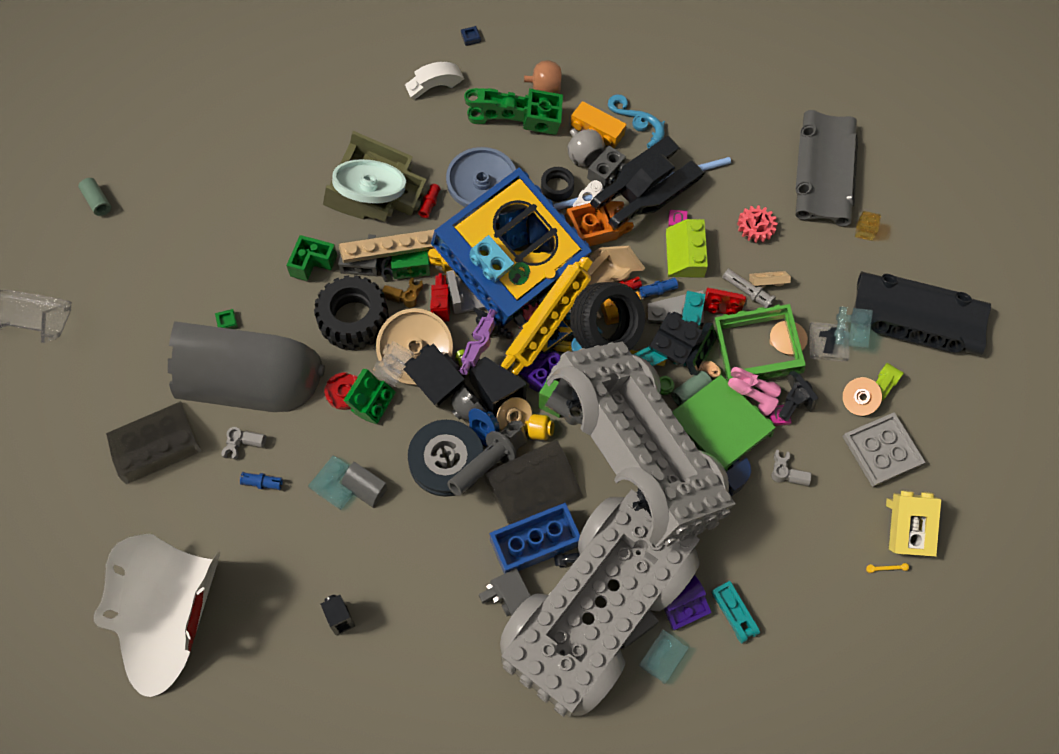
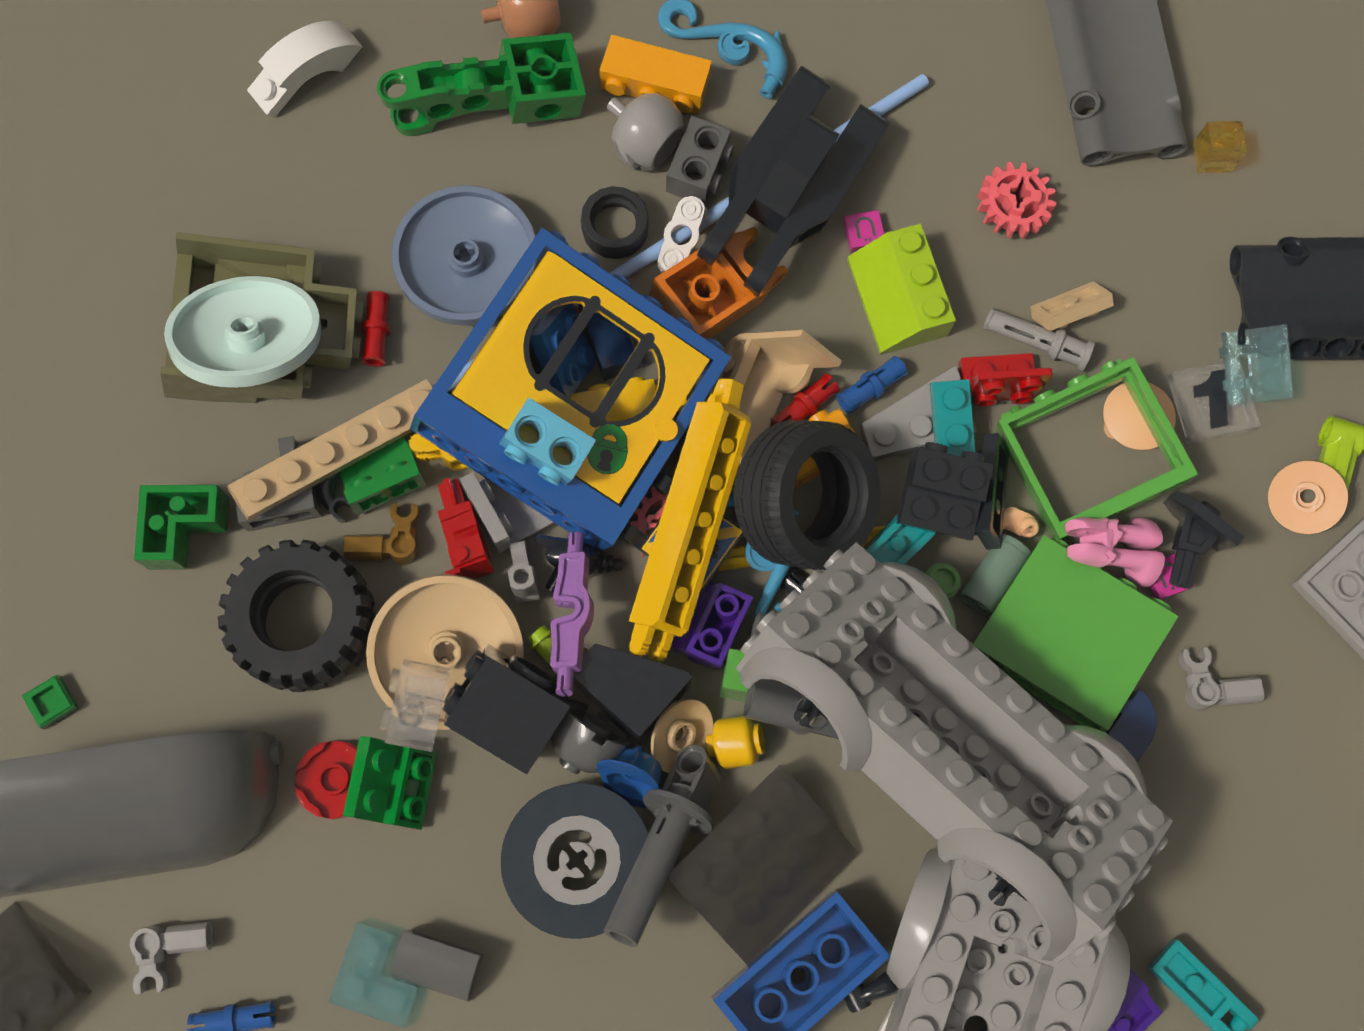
camera: 20 degrees left, 10 degrees up
(461, 324) = (522, 575): none -> light grey bar

